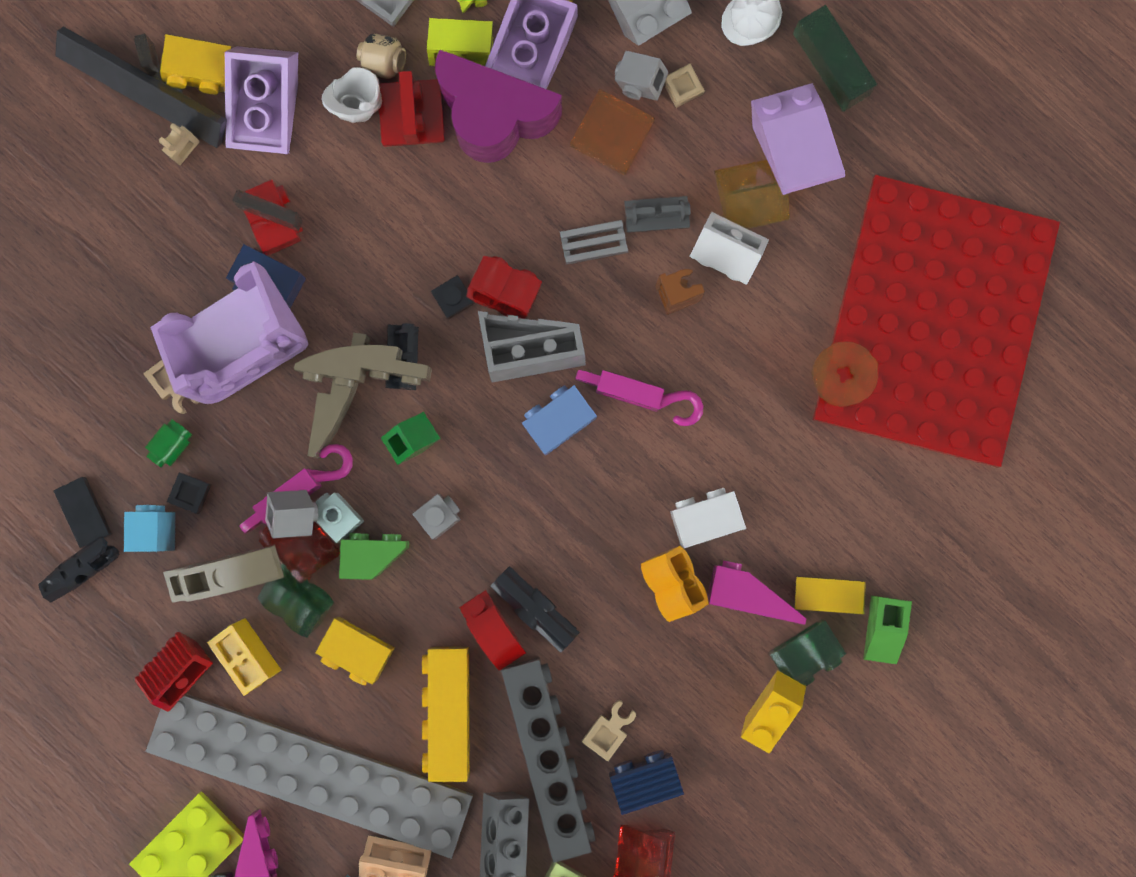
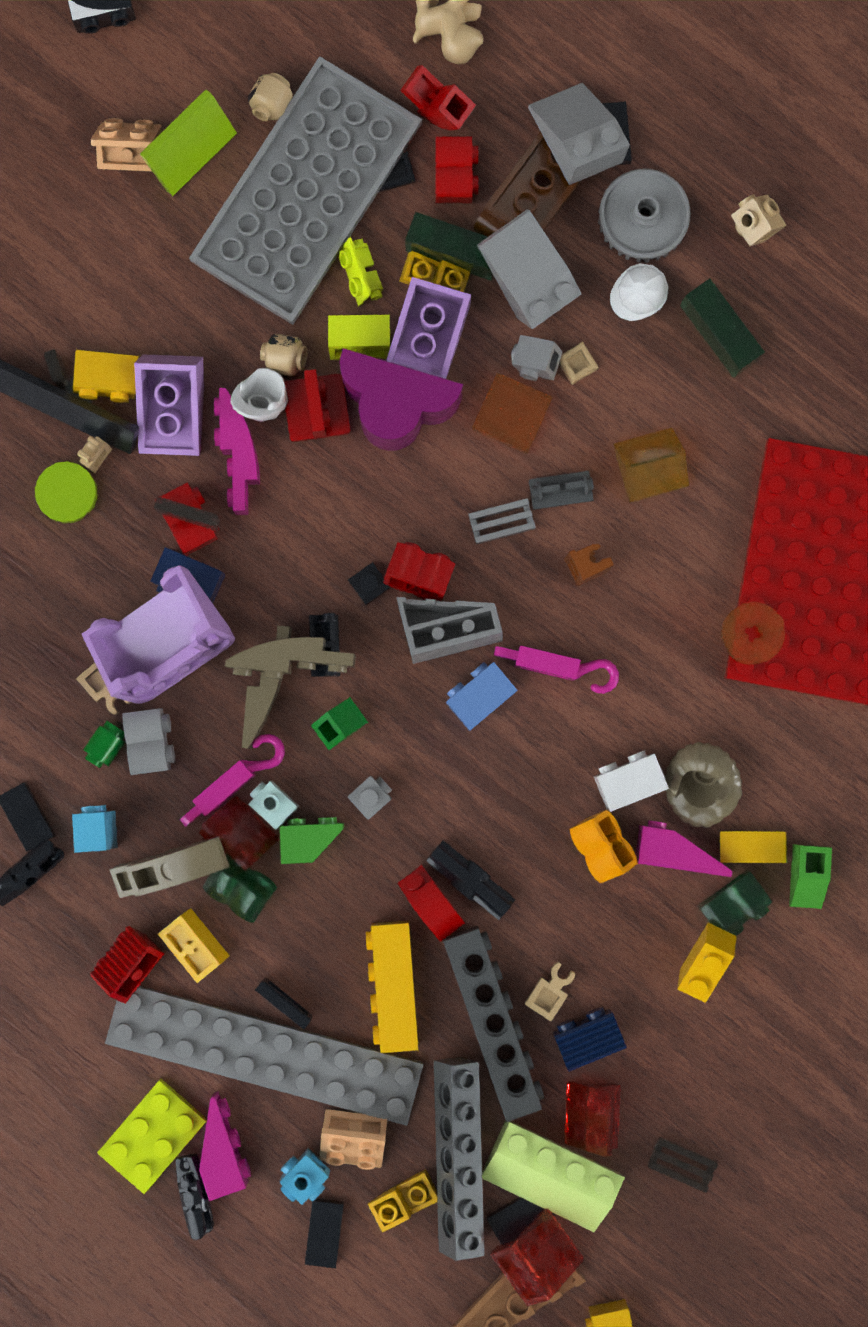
camera: 10 degrees left, 0 degrees up
(148, 182) = (66, 492): none -> lime tile
(189, 493) = (128, 791): black plate -> none
(212, 443) = (147, 741): none -> light grey brick
(290, 513) = (231, 805): light grey brick -> none
(325, 140) = (237, 441): none -> dark pink slope
(333, 722) = (284, 1003): none -> black tile
(354, 651) = (299, 932): yellow brick -> none
(729, 248) = (633, 519): white brick -> none
(782, 527) = (703, 784): none -> dark tan piece
(797, 138) = (691, 409): lavender slope -> none

